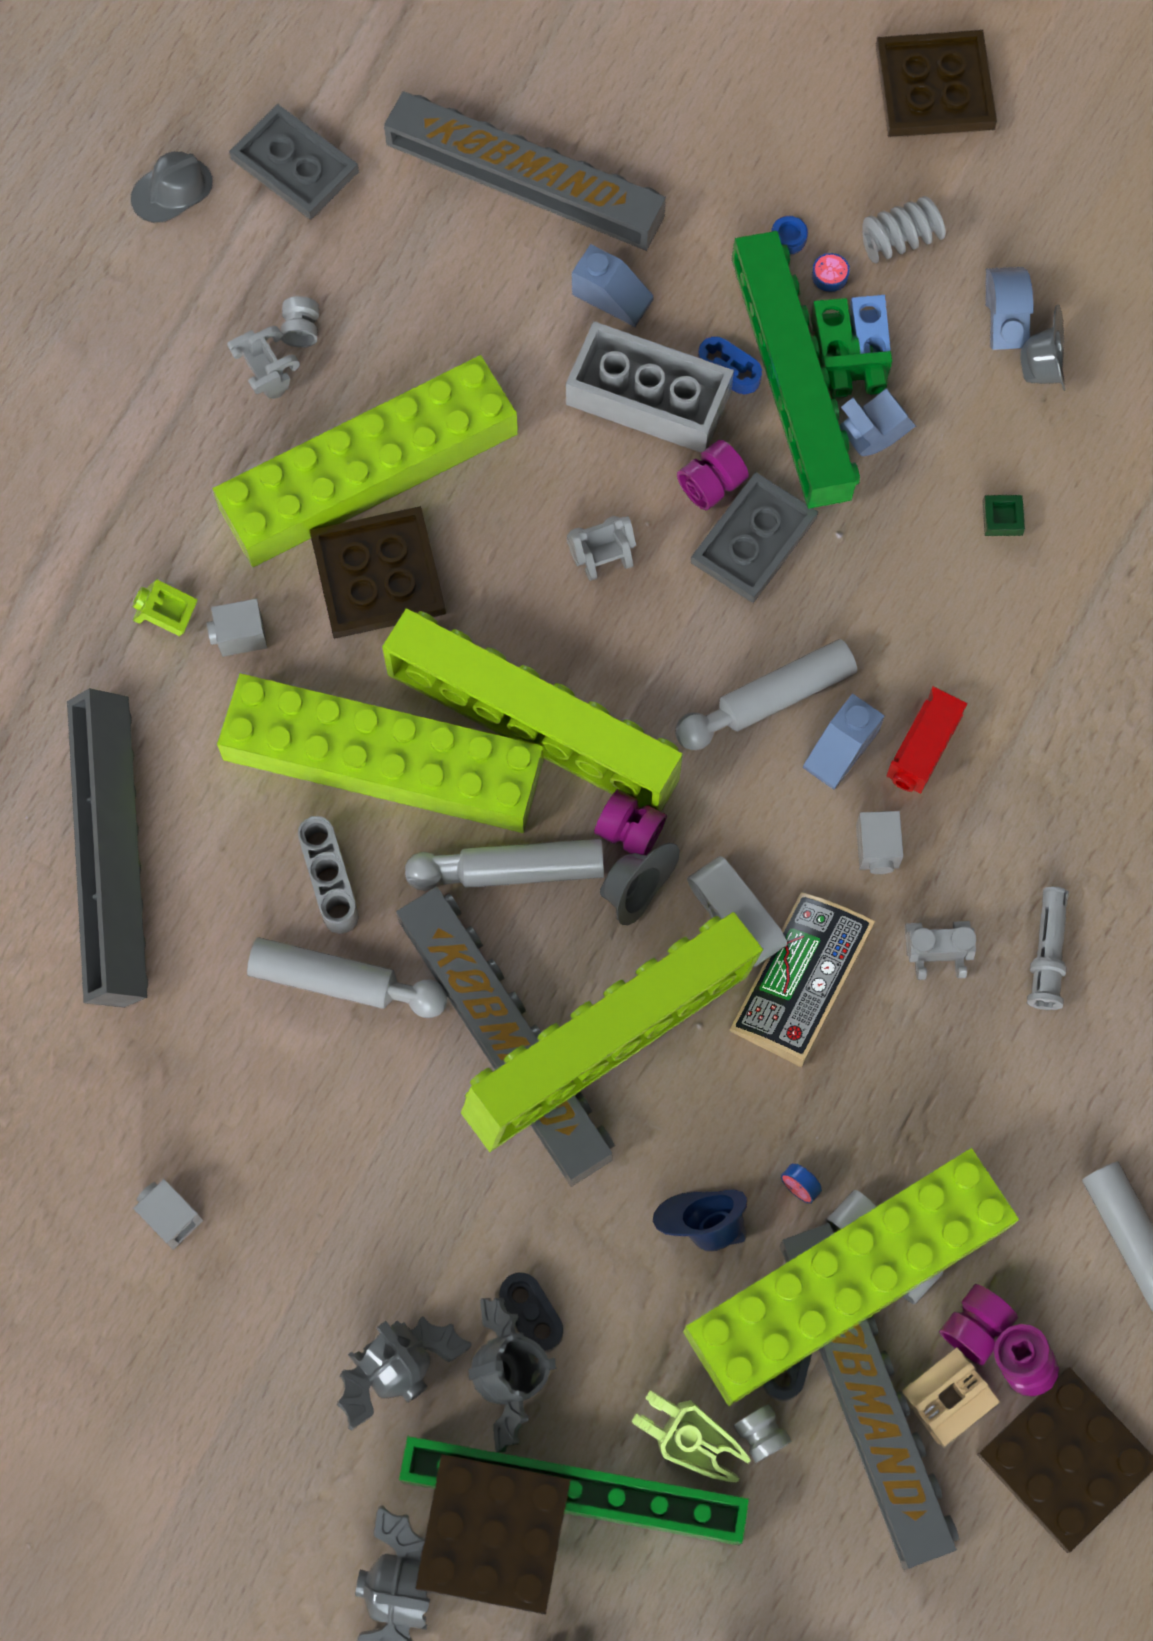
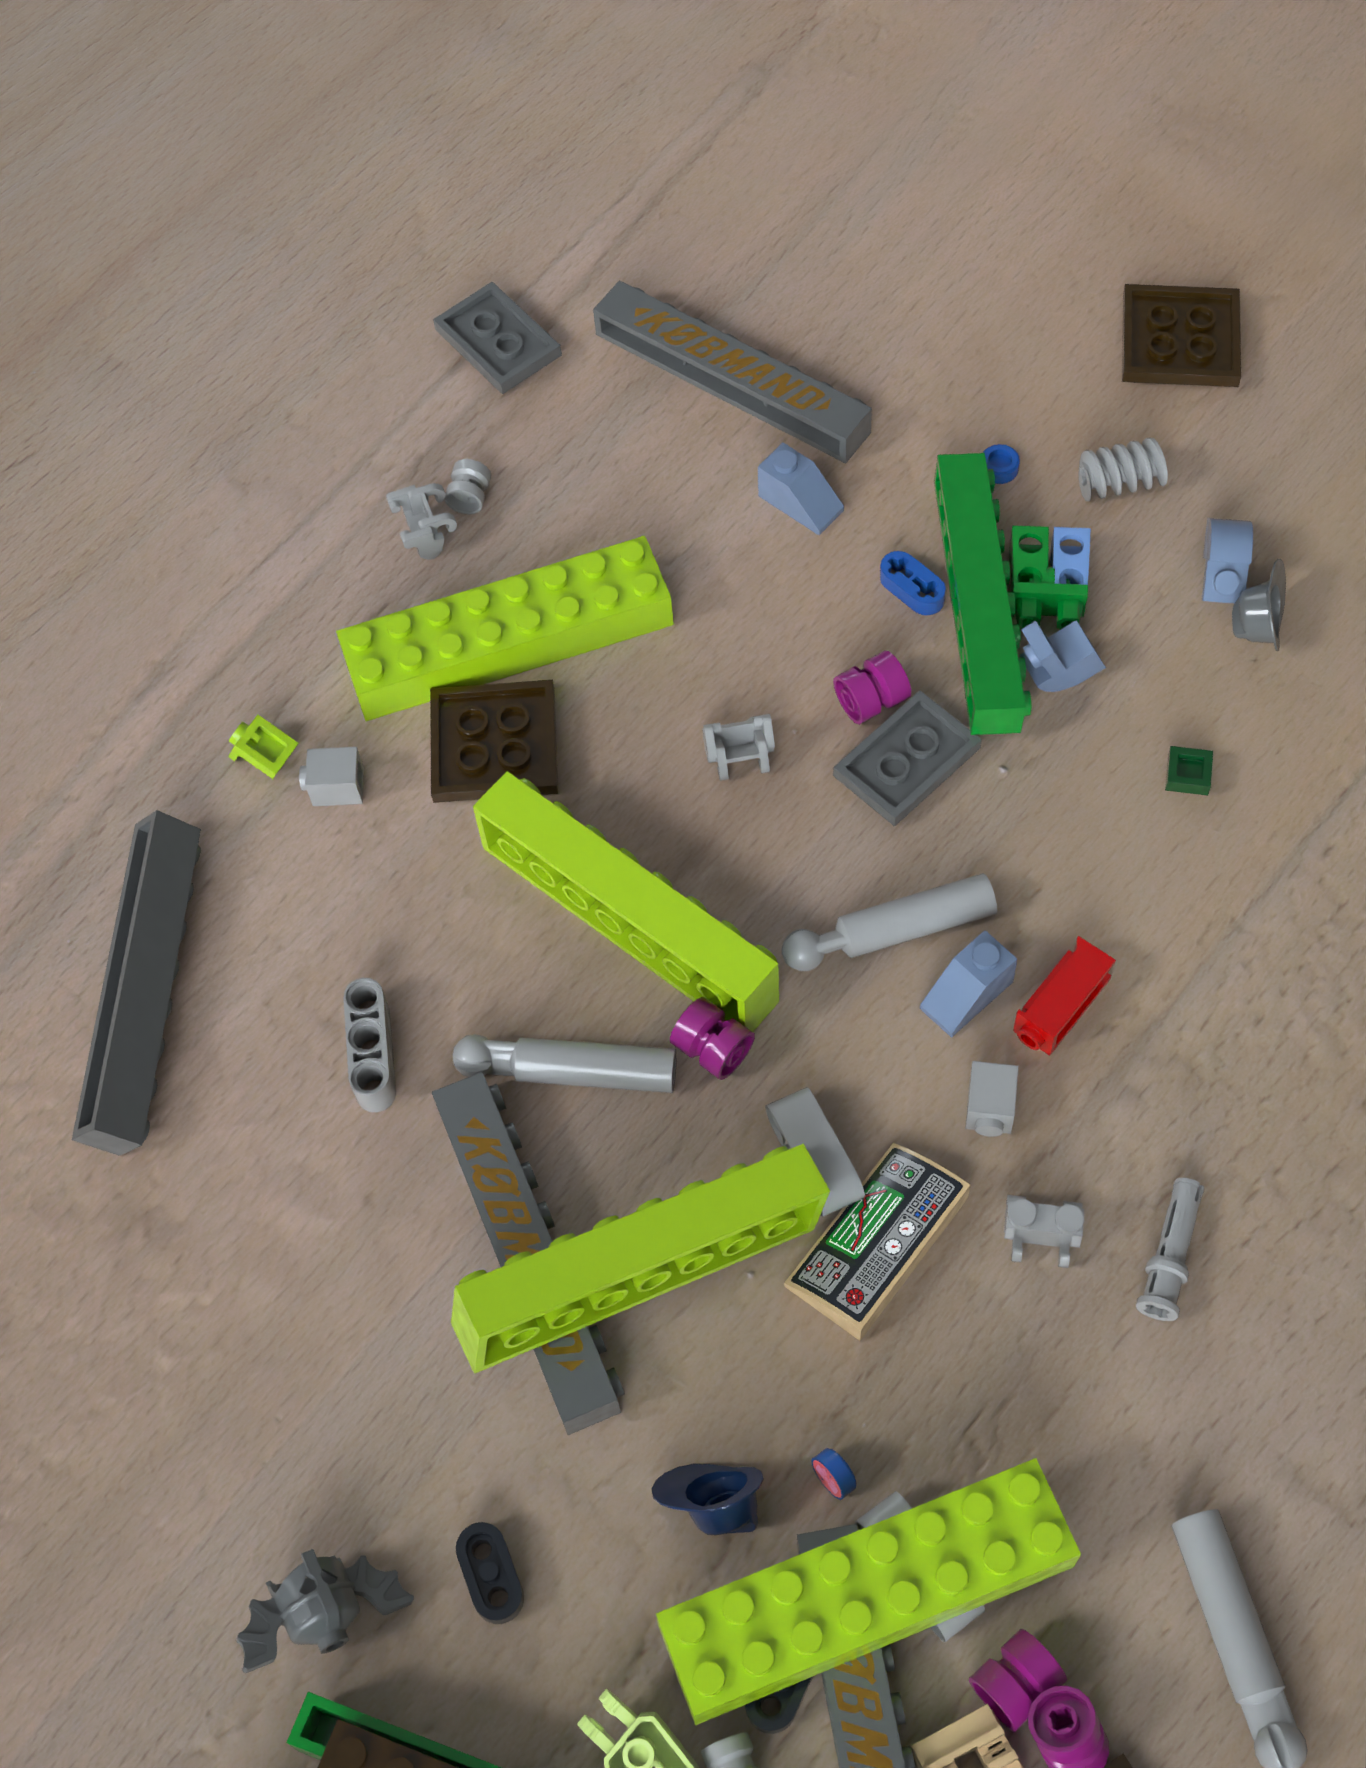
camera: 15 degrees right, 10 degrees down
(167, 1213) = (106, 1388): light grey brick -> none
(171, 187) = (371, 347): dark grey piece -> none
(341, 978) = (359, 1158): light grey piece -> none
(381, 752) = (457, 925): lime brick -> none
(507, 1371) = (458, 1636): dark grey helmet -> none
(637, 879) = (709, 1099): dark grey piece -> none
(649, 387) = (819, 590): light grey brick -> none
(830, 272) = (1038, 505): tile -> none

